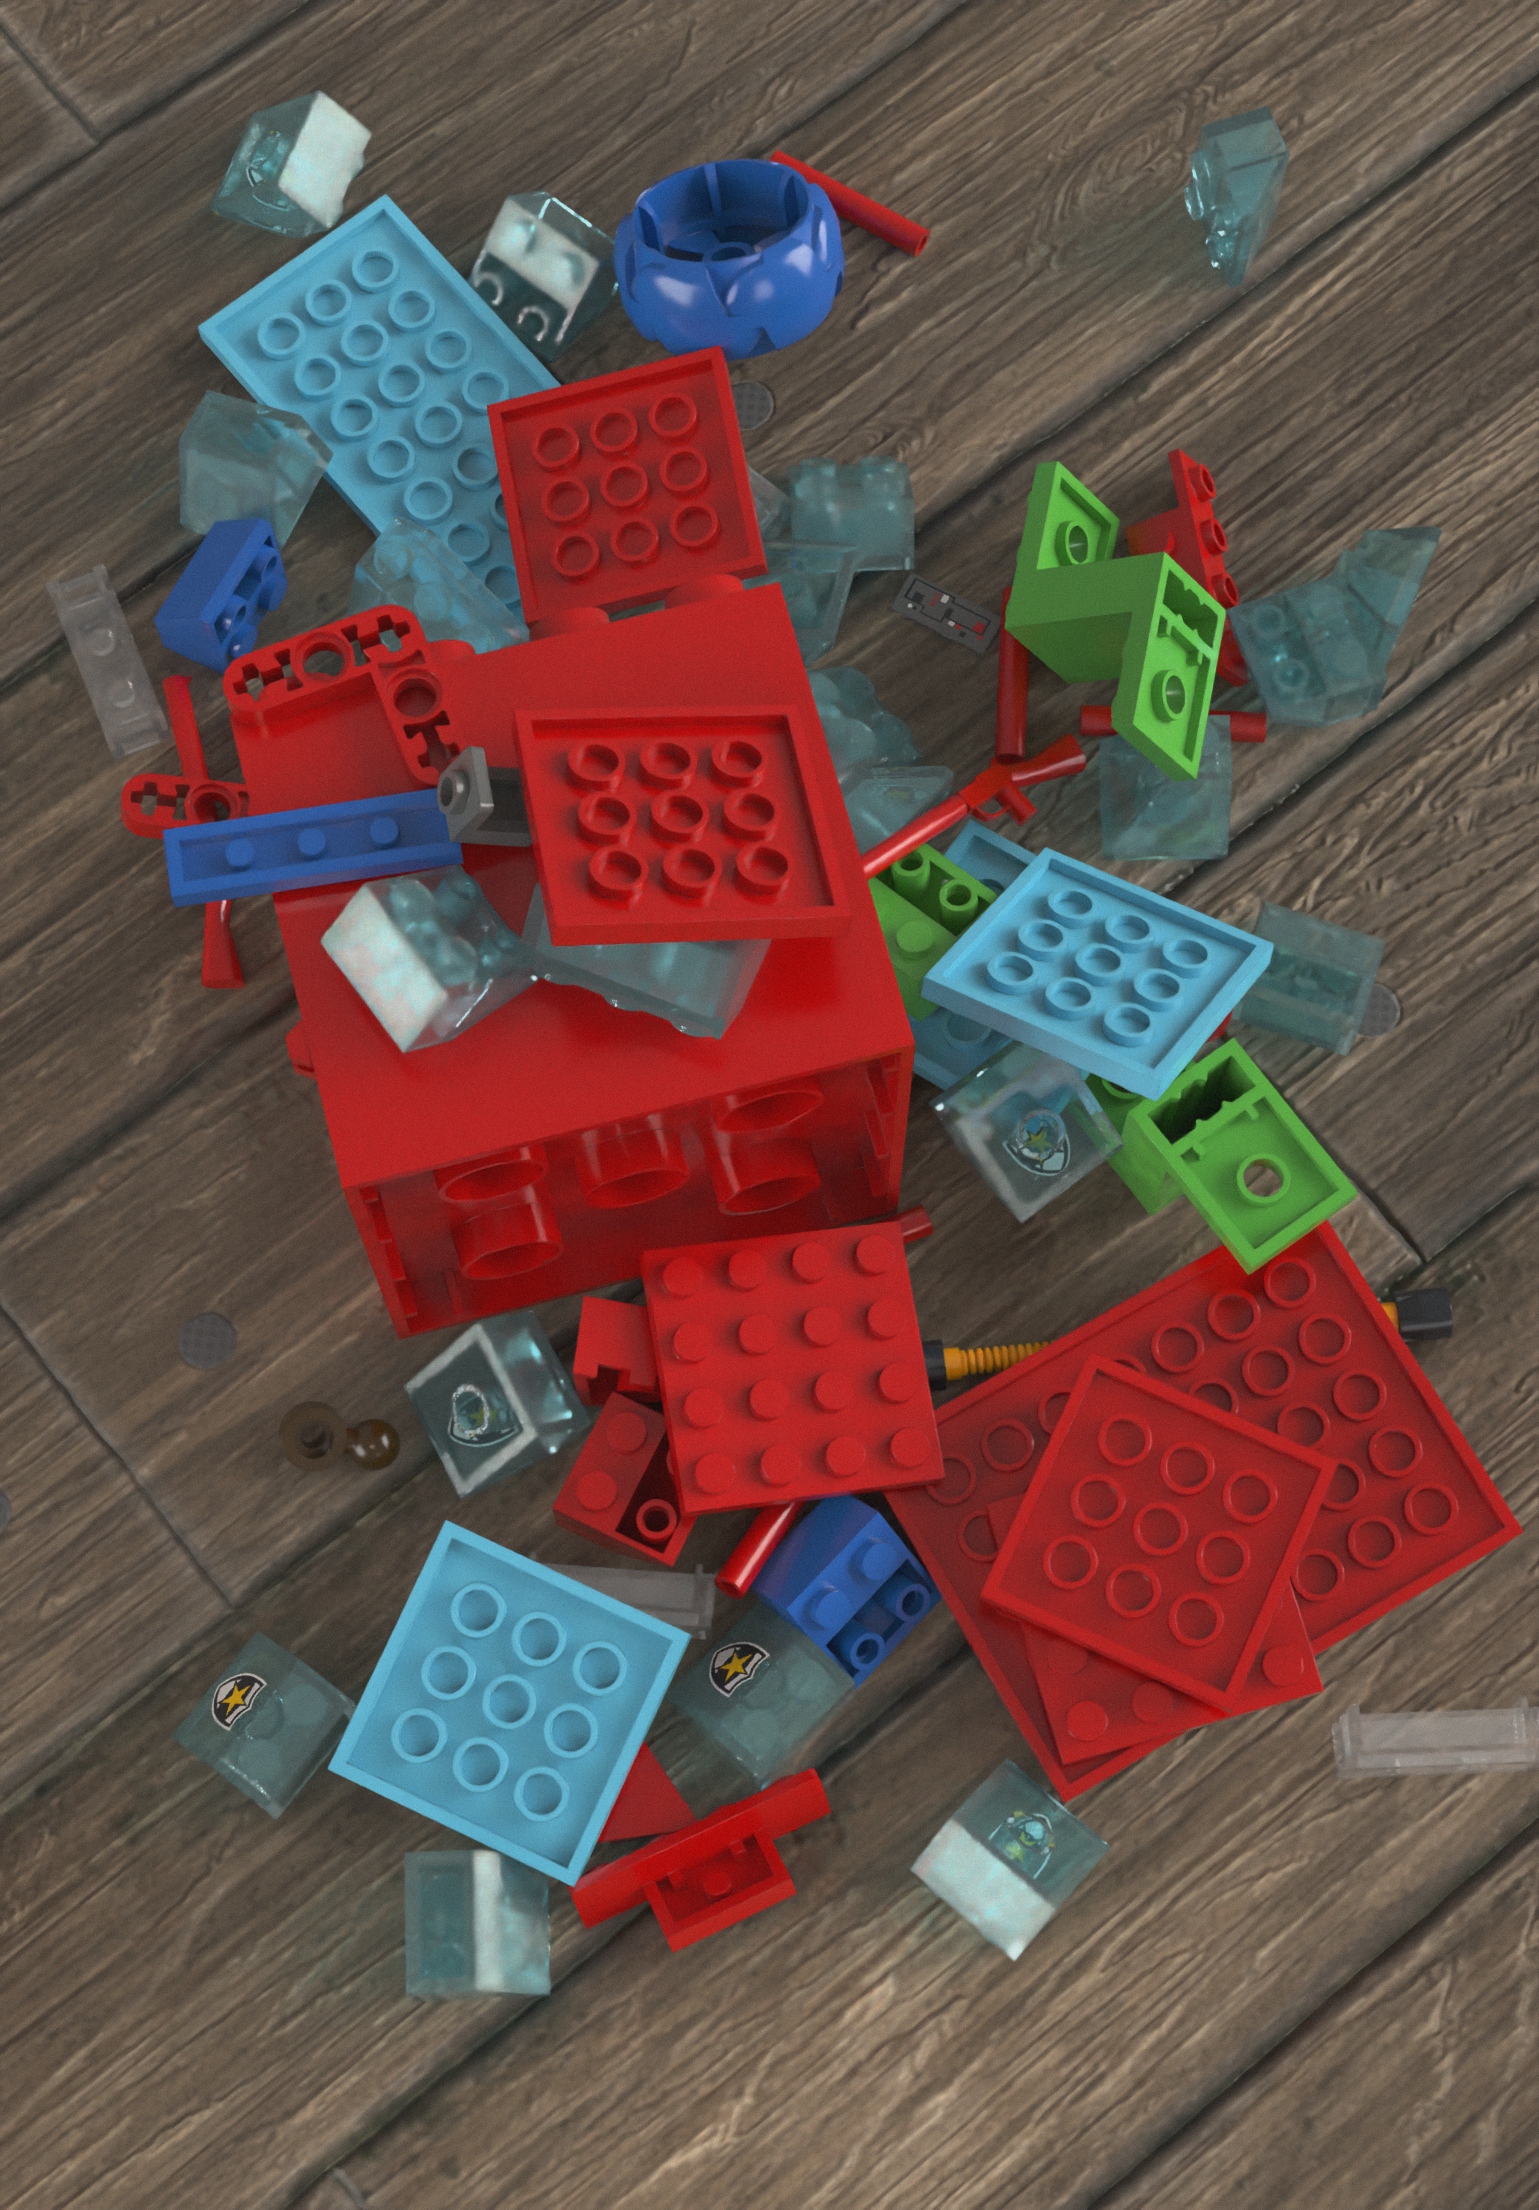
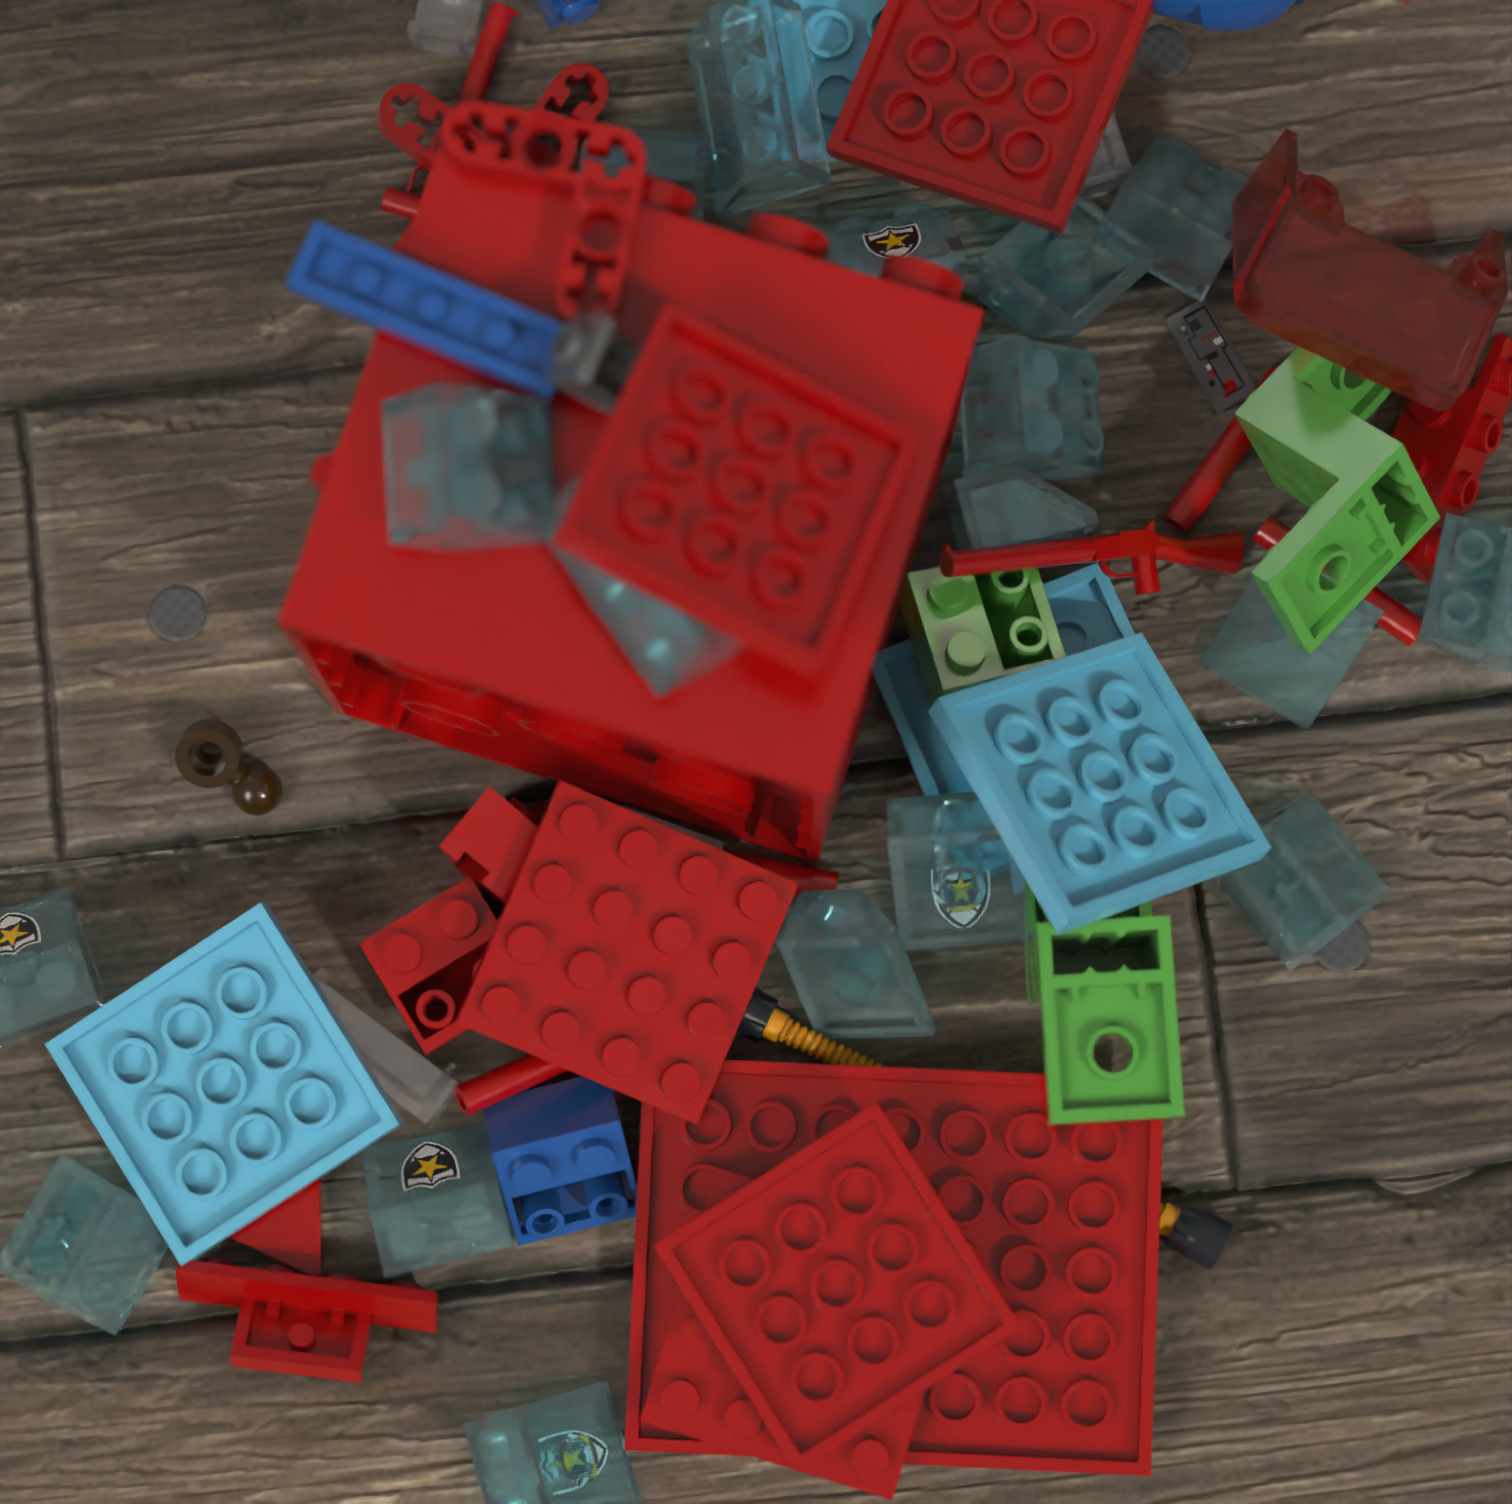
camera: 30 degrees right, 10 degrees up
(496, 1402) = (376, 820): clear light blue slope -> none
(991, 1267) = (852, 968): none -> clear light blue slope
(1036, 466) = (1356, 295): none -> clear red windscreen

